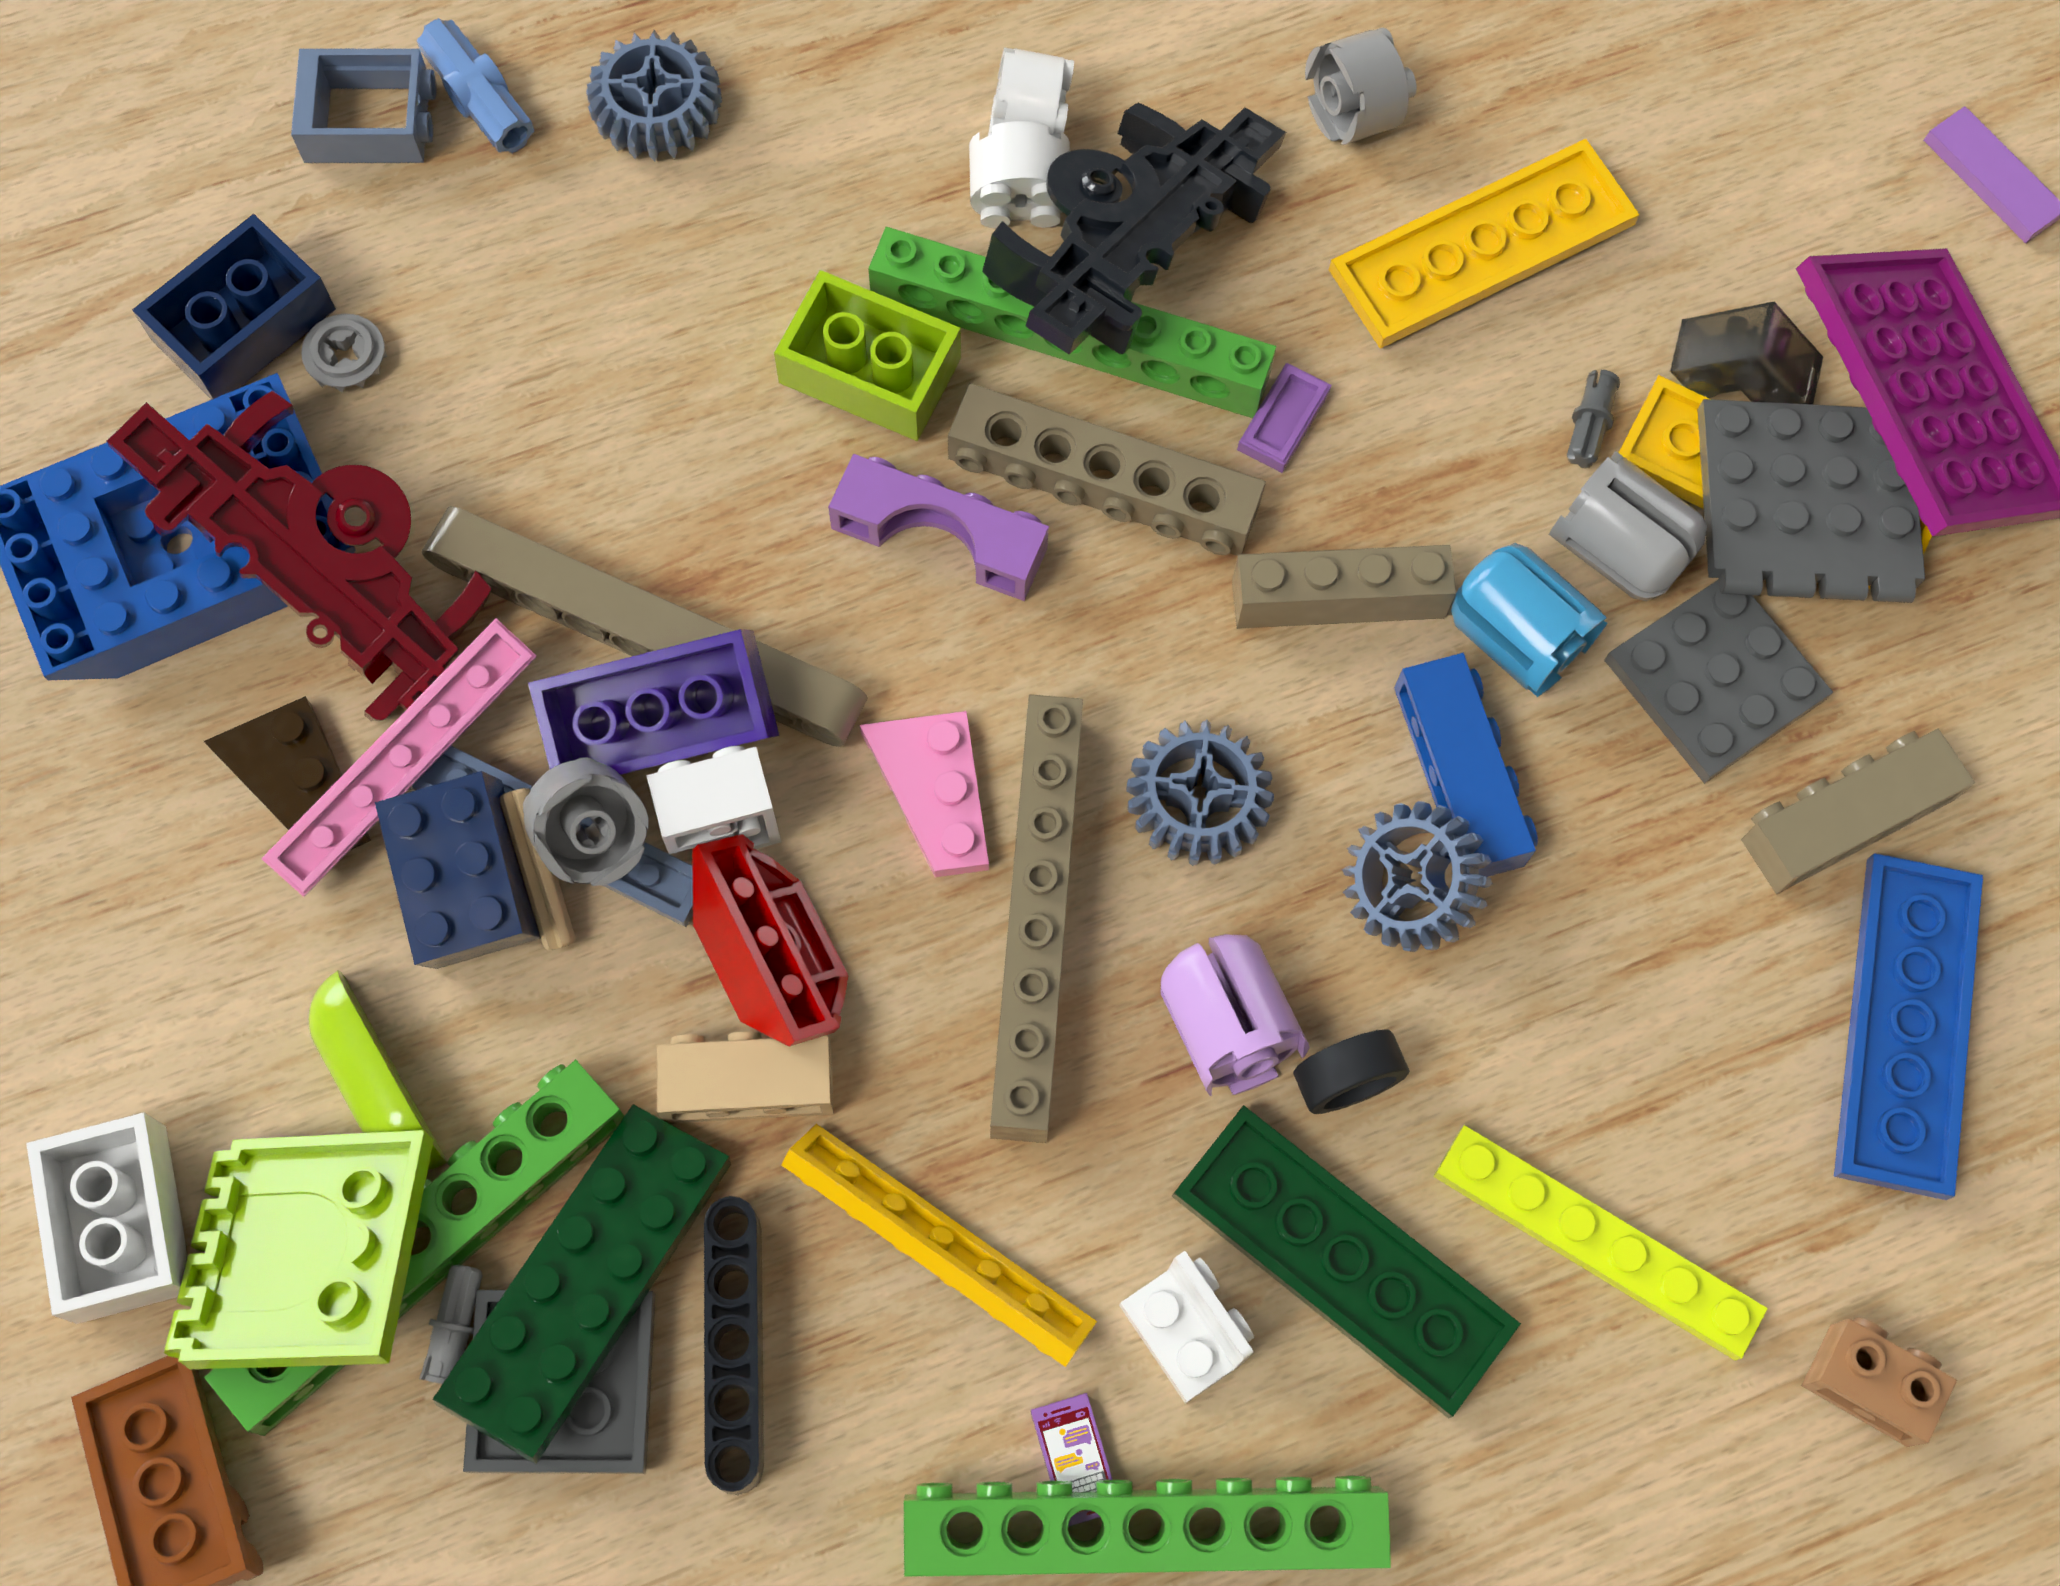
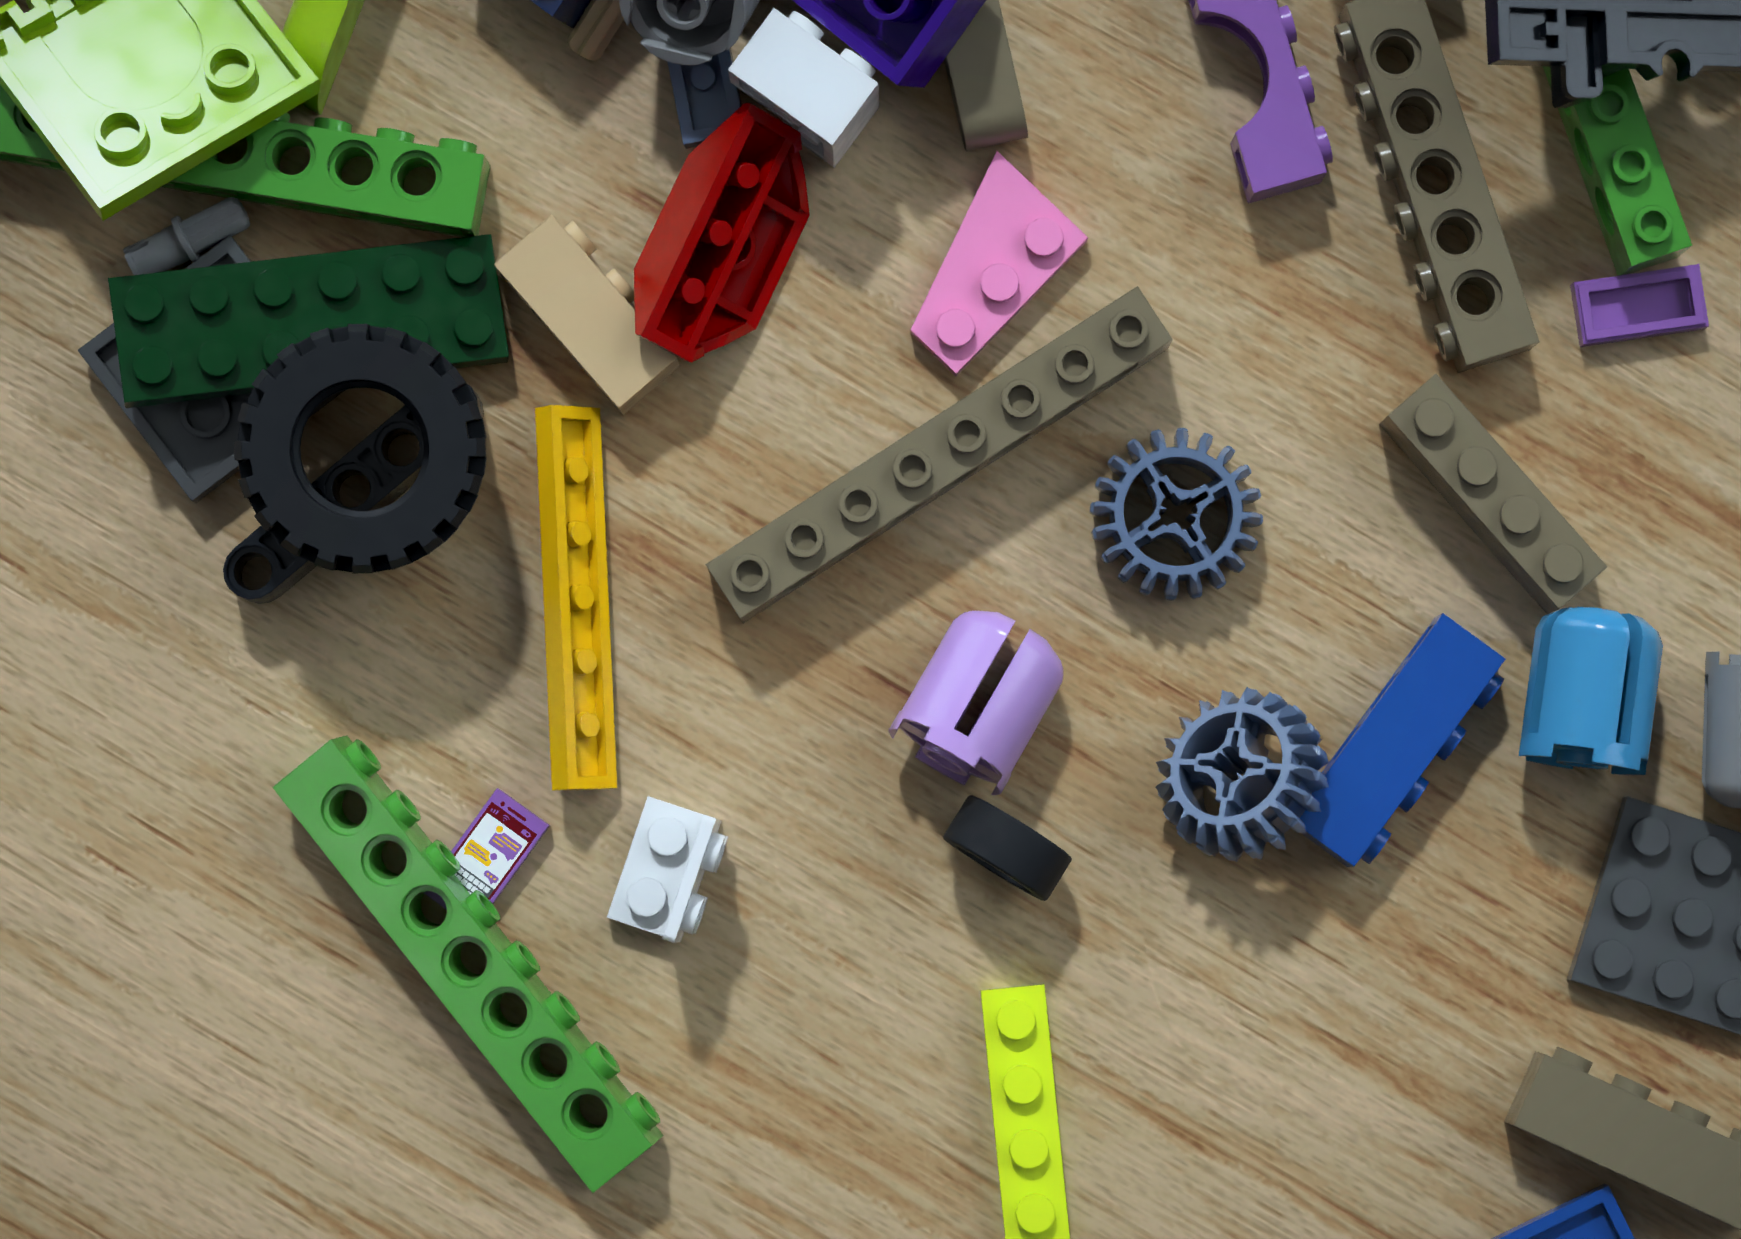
camera: 60 degrees right, 15 degrees up
(695, 1219) = (273, 432): none -> black tyre
(1347, 1261) = (837, 965): dark green plate -> none

